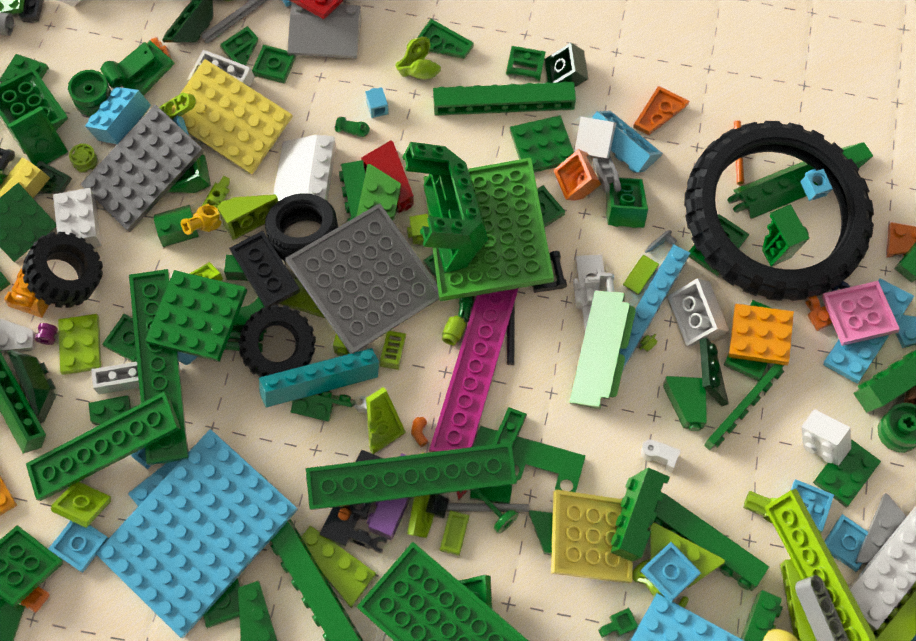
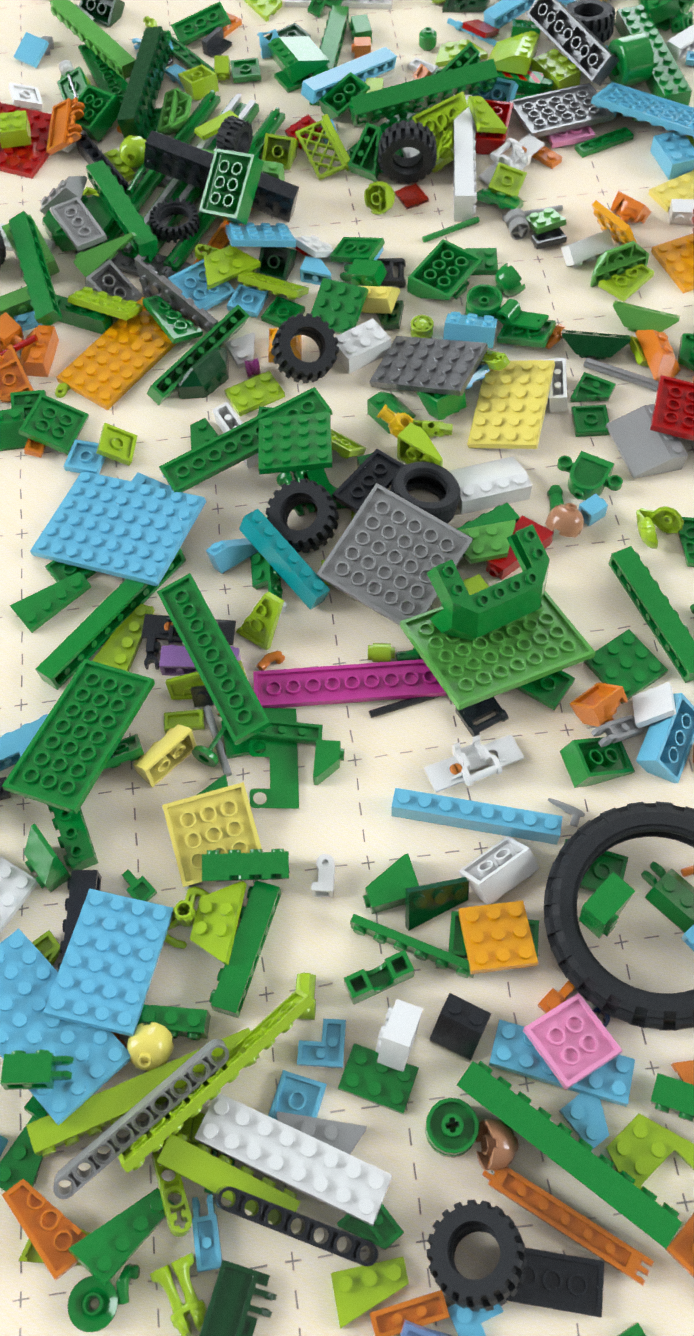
camera: 75 degrees right, 5 degrees down
(38, 137) = (418, 286): green plate -> none
(71, 59) = (508, 281): none -> green cylinder
(102, 446) = (165, 435): green plate -> none
(282, 428) = (229, 553): none -> medium azure slope
(338, 89) = (589, 475): none -> green piece
(381, 126) = (565, 519): none -> nougat cylinder
(392, 363) = (341, 618): lime slope -> none
(490, 557) = (165, 754): none -> light yellow slope
(547, 415) = (327, 759): none -> green slope
(600, 357) = (414, 780): slope -> none
(641, 274) = (519, 799): lime slope -> none
(648, 342) = (443, 829): lime plate -> none
(670, 572) = (194, 911): medium azure tile -> none
(764, 425) = (392, 972): none -> green arch
(823, 391) = (460, 1026): none -> black slope

